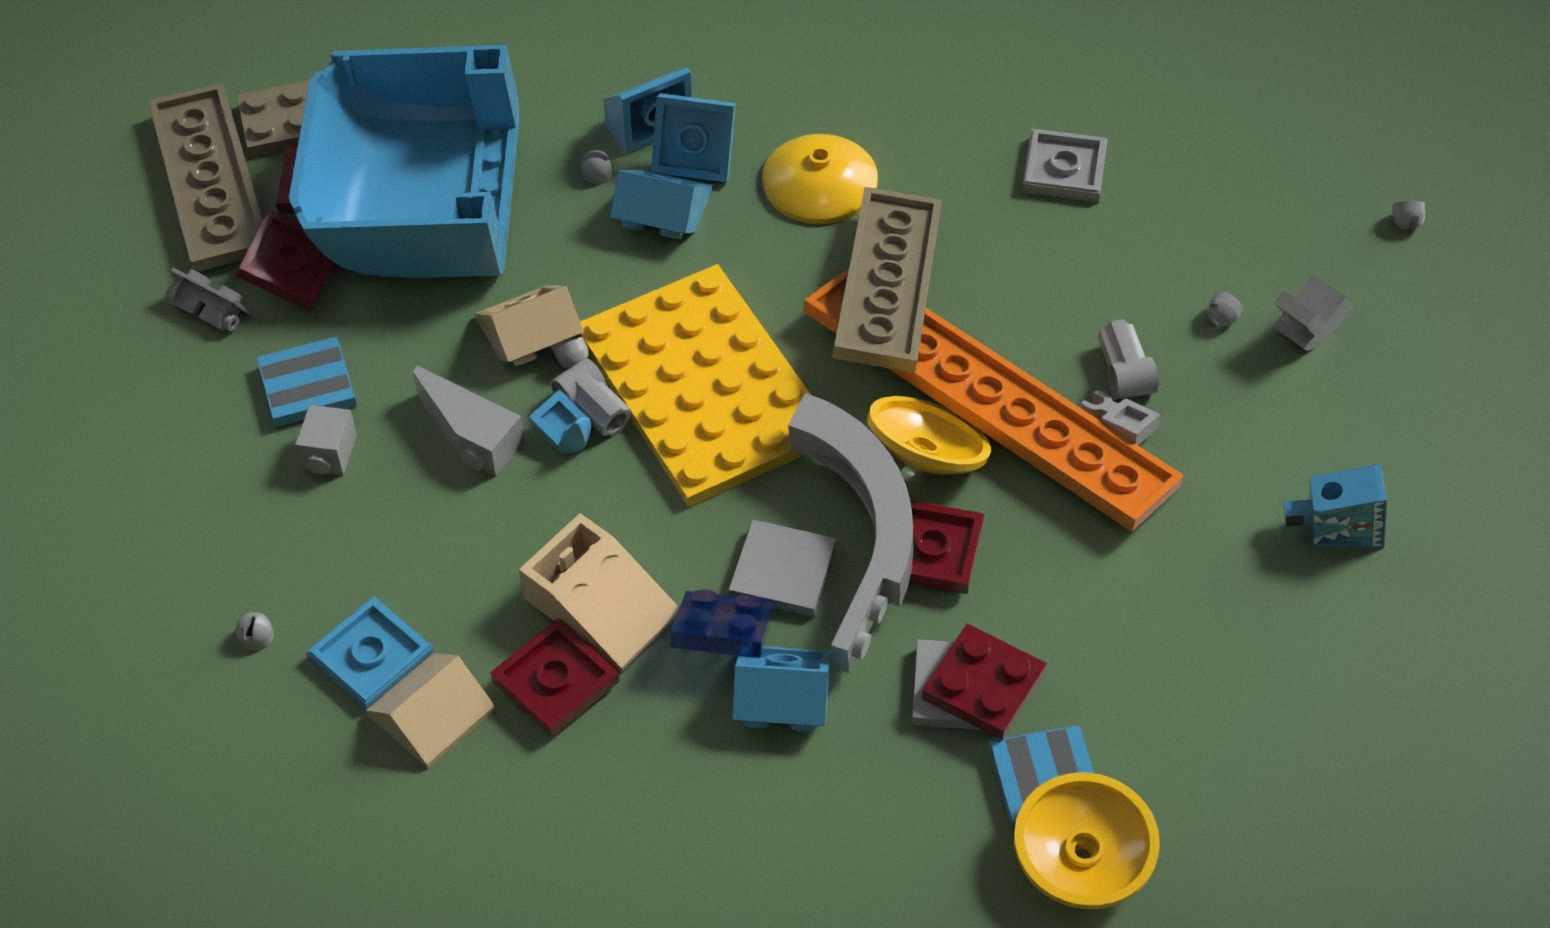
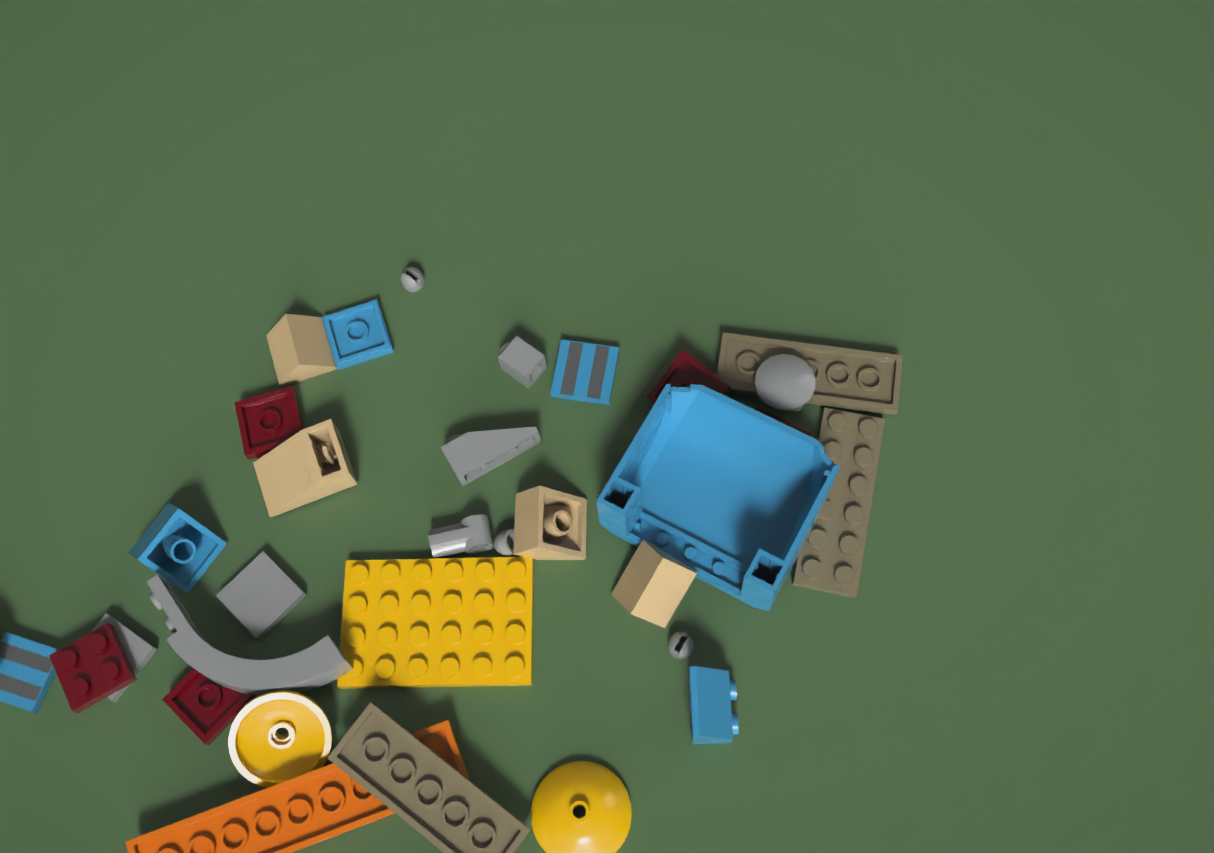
camera: 125 degrees right, 15 degrees up
(220, 306) = (696, 333): light grey hinge -> none
(235, 177) = (785, 382): none -> light grey dish
(543, 207) = (653, 584): none -> tan slope
(562, 424) = (449, 508): dark azure plate -> none
(659, 202) = (614, 672): dark azure slope -> none
(693, 137) = (652, 721): dark azure plate -> none
(722, 623) = (234, 530): clear blue plate -> none

